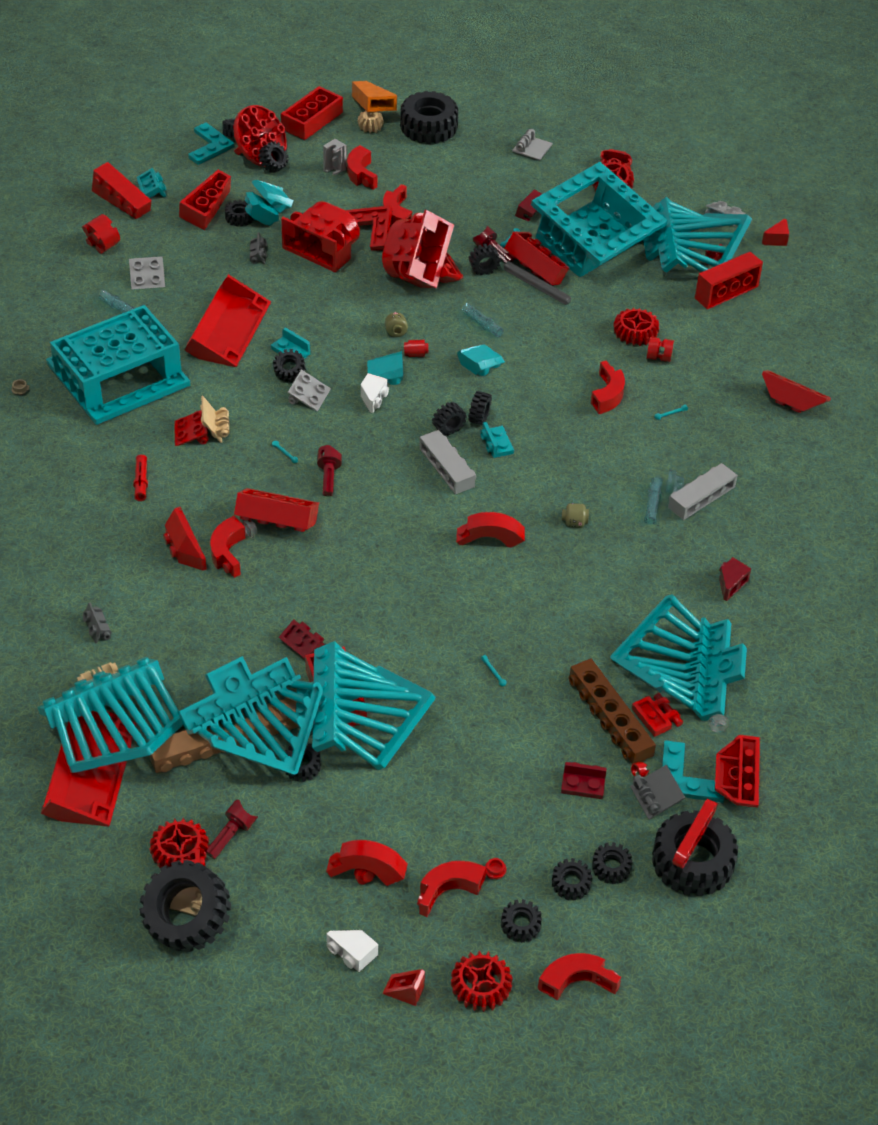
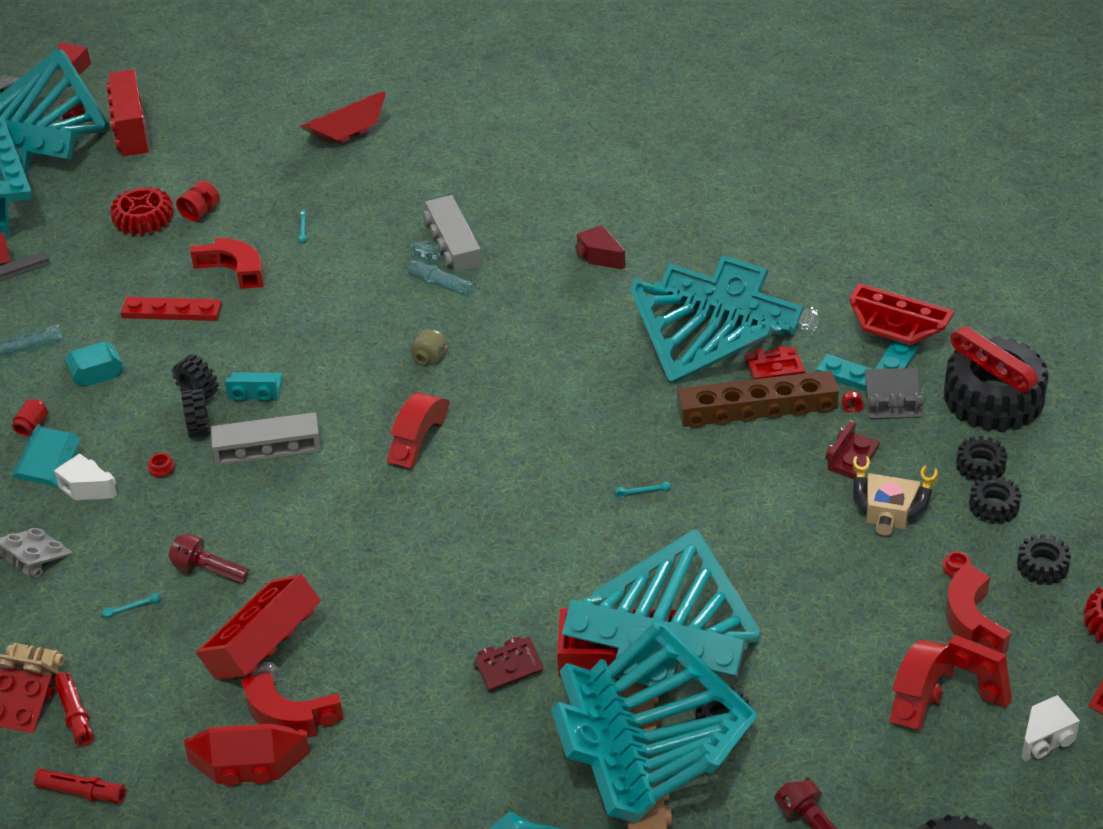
camera: 65 degrees left, 5 degrees down
(189, 457) = (76, 716): none -> red pin
(380, 893) = (988, 666): none -> red plate
(404, 422) = (161, 465): none -> red plate
(539, 810) = (890, 500): none -> torso
(551, 377) = (171, 308): none -> red plate

